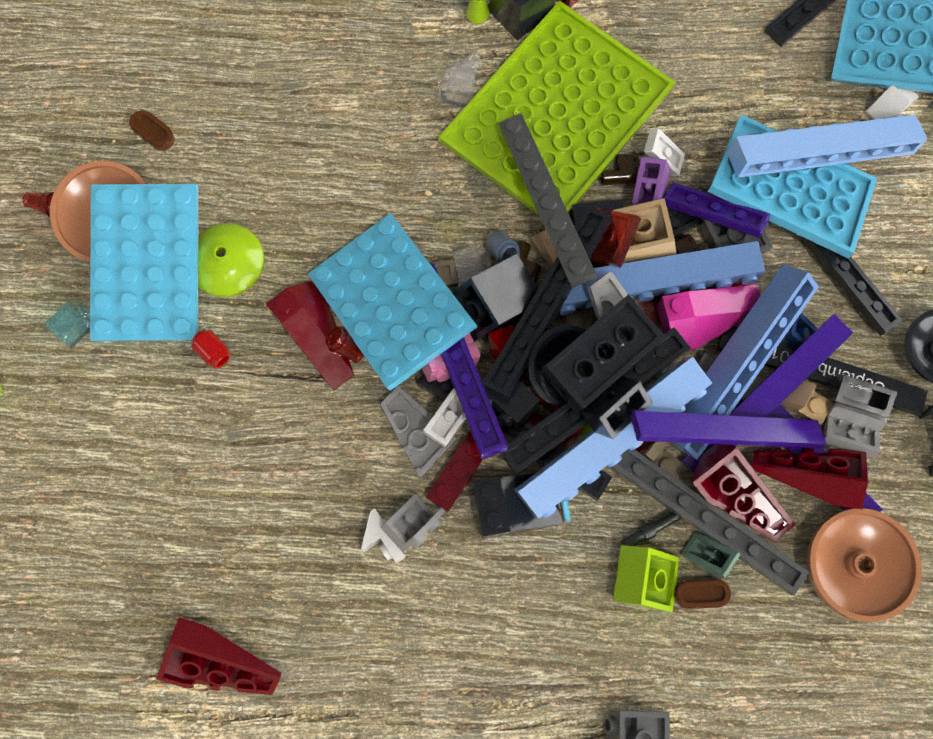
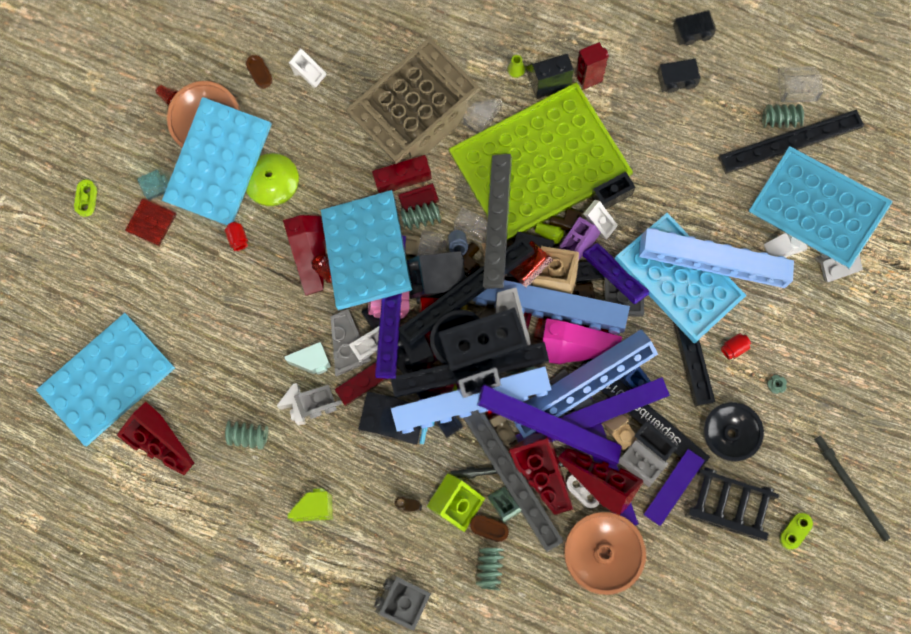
camera: 30 degrees right, 0 degrees up
(86, 375) = (150, 222): none -> clear red tile
(108, 610) = (105, 379): none -> medium azure plate
(212, 101) = (303, 65): none -> white slope
(335, 606) = (245, 436): none -> sand green piece
(376, 89) = (415, 103): none -> dark tan wedge
(377, 470) = (310, 359): none -> light aqua slope
(394, 189) = (402, 174): none -> dark red brick
(425, 212) = (418, 196): none -> dark red tile
(438, 231) = (420, 215): none -> sand green piece
(469, 665) = (313, 507): none -> lime slope
(512, 219) = (472, 225): none -> clear slope
(587, 608) = (407, 505): none -> dark brown piece
(608, 191) = (550, 232): none -> lime cone
(666, 110) = (614, 190): none -> black brick
(730, 647) = (489, 568): none -> sand green piece
(796, 499) = (580, 493): none -> white plate
(894, 243) = (736, 346): none -> red brick
(904, 446) = (674, 487): none -> dark purple tile

